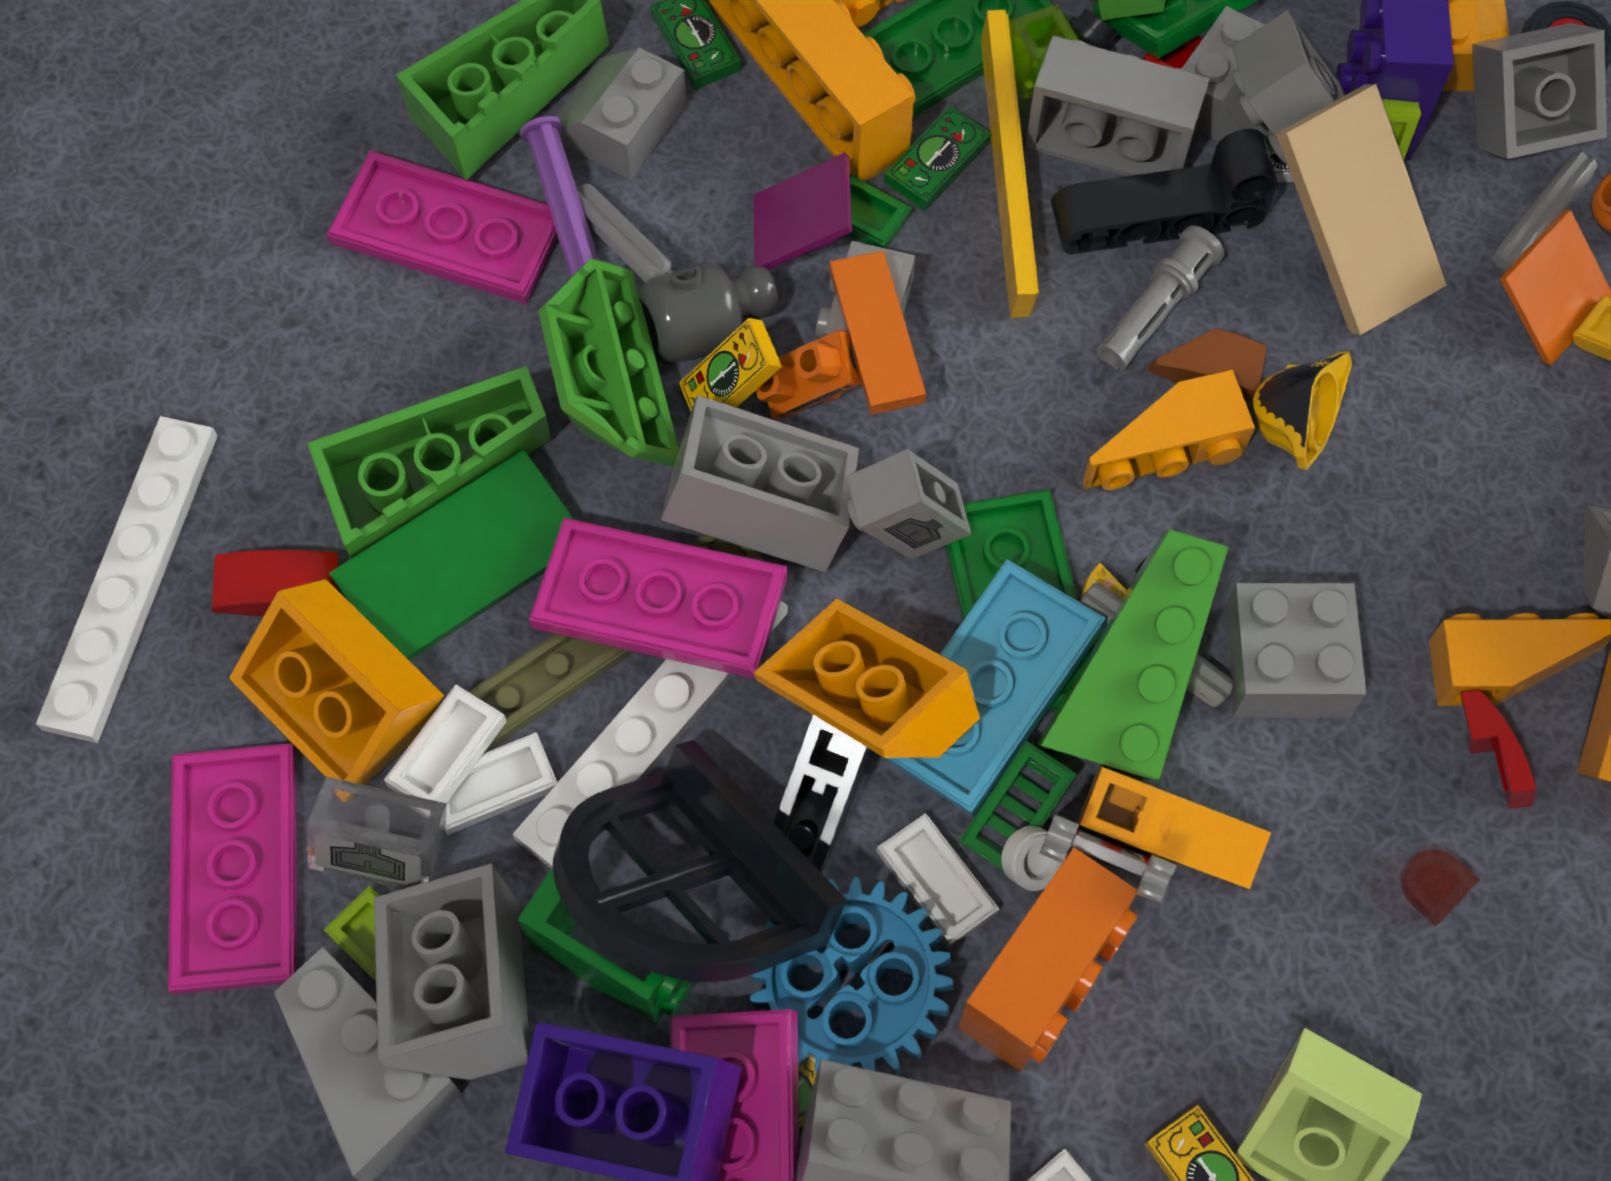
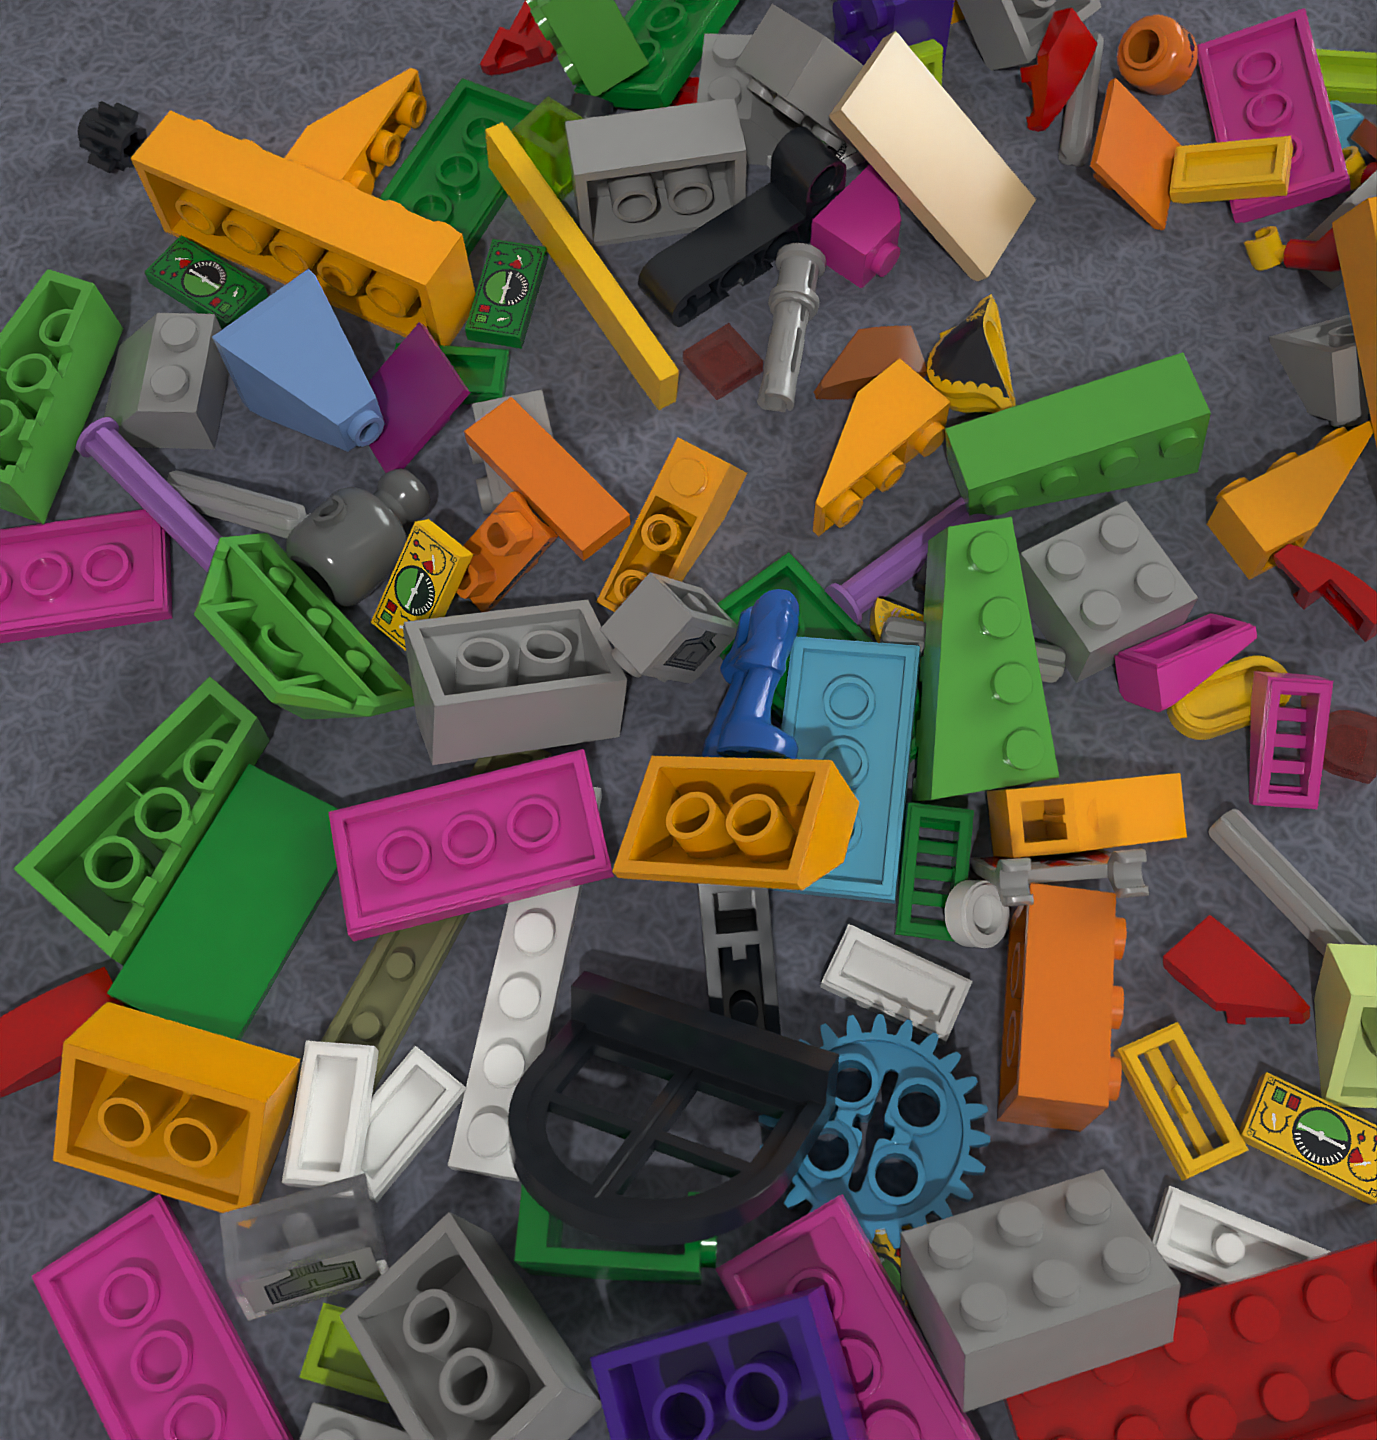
camera: 25 degrees left, 0 degrees up
(729, 146) = (300, 368): none -> medium blue slope
(958, 569) = (753, 671): none -> blue piece
(971, 416) = (675, 520): none -> light orange slope
(1087, 301) = (722, 361): none -> clear red tile
(1111, 1145) = (1157, 1114): none -> yellow tile
(1136, 543) = (896, 564): none -> medium lavender axle
(1215, 1016) = (1232, 976): none -> red slope
(1266, 242) = (860, 229): none -> dark pink slope
(1306, 964) = (1281, 882): none -> light grey axle
(1324, 740) = (1177, 661): none -> dark pink slope
(1348, 515) = (1082, 440): none -> bright green wedge
(1356, 794) = (1222, 700): none -> yellow tile
(1414, 842) = (1311, 740): none -> dark pink slope
(1534, 174) = (1060, 66): none -> red slope

